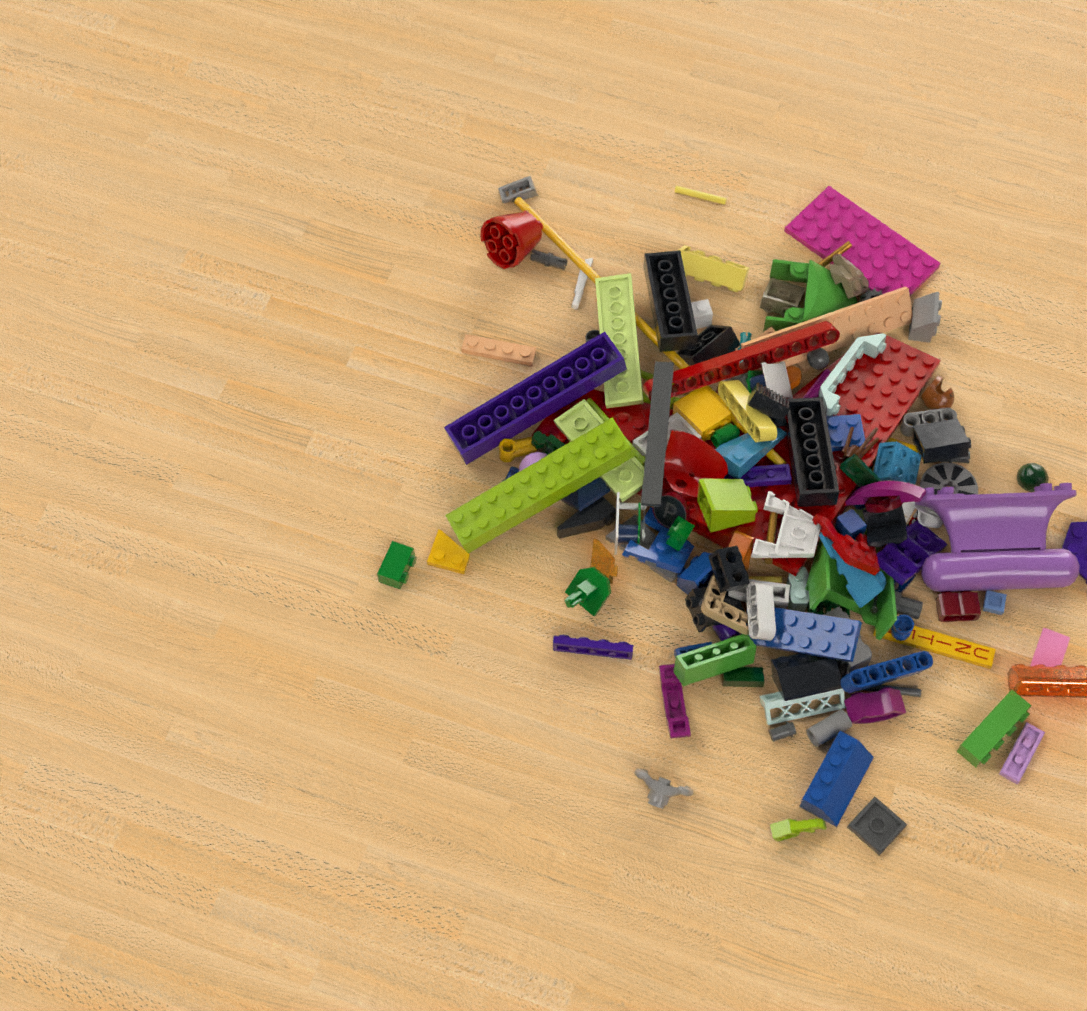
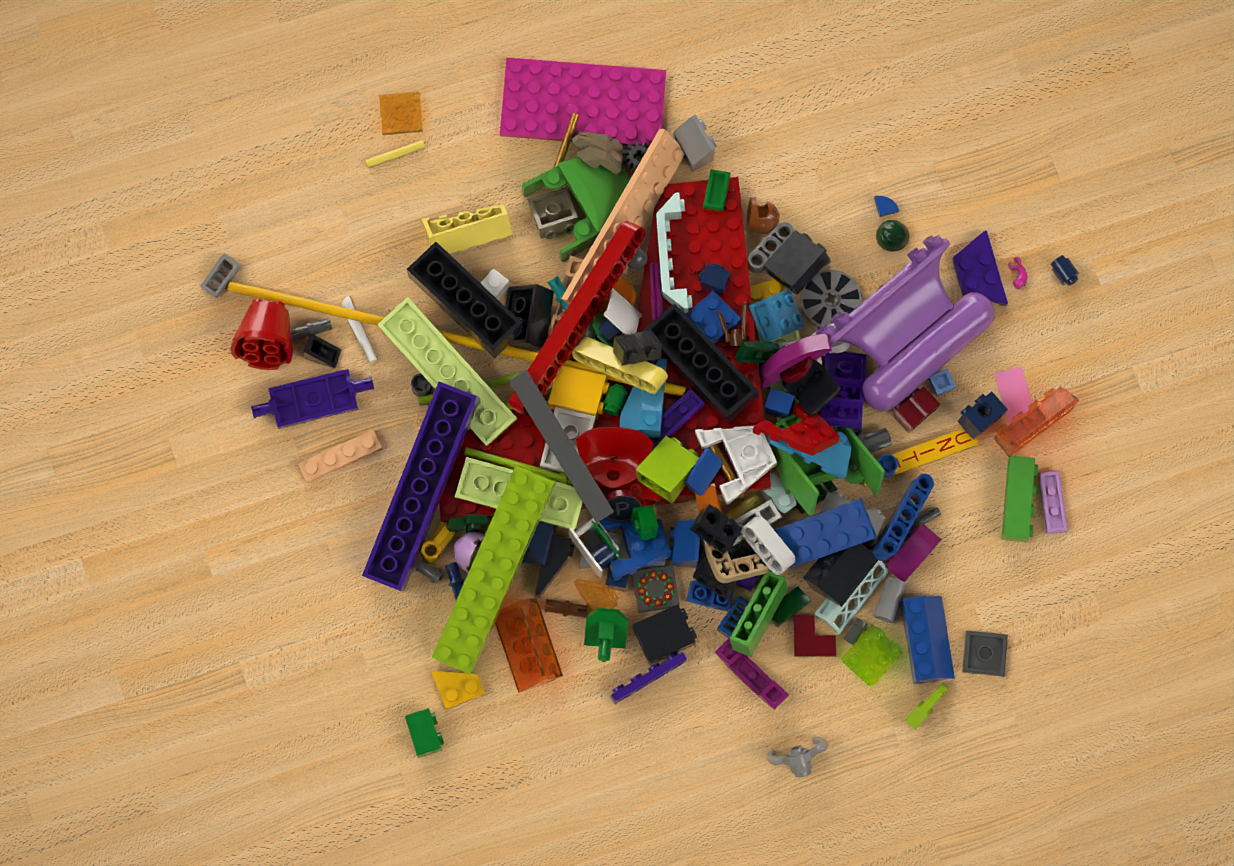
camera: 45 degrees left, 15 degrees up
(497, 467) = (430, 571): none -> dark grey pin
(511, 301) = (313, 398): none -> dark purple plate
(523, 560) = (527, 644): none -> clear orange slope
(542, 275) = (321, 351): none -> black slope
(572, 557) = (566, 608): none -> reddish brown pin
(626, 565) = (619, 585): none -> dark blue brick
(631, 624) = (664, 634): none -> black brick
(650, 591) = (655, 589): none -> tile
(683, 622) = (706, 597): none -> blue slope
(725, 174) = (400, 113): none -> clear yellow tile
(737, 713) = (807, 643): none -> dark red tile
(750, 522) = (703, 472): none -> blue slope
(782, 757) = (872, 655): none -> clear neon green bracket
(868, 407) = (714, 278): none -> dark blue brick
(916, 356) = (716, 190): none -> green tile
(1010, 645) = (992, 410): none -> dark blue brick
(1042, 454) = (885, 206): none -> blue tile

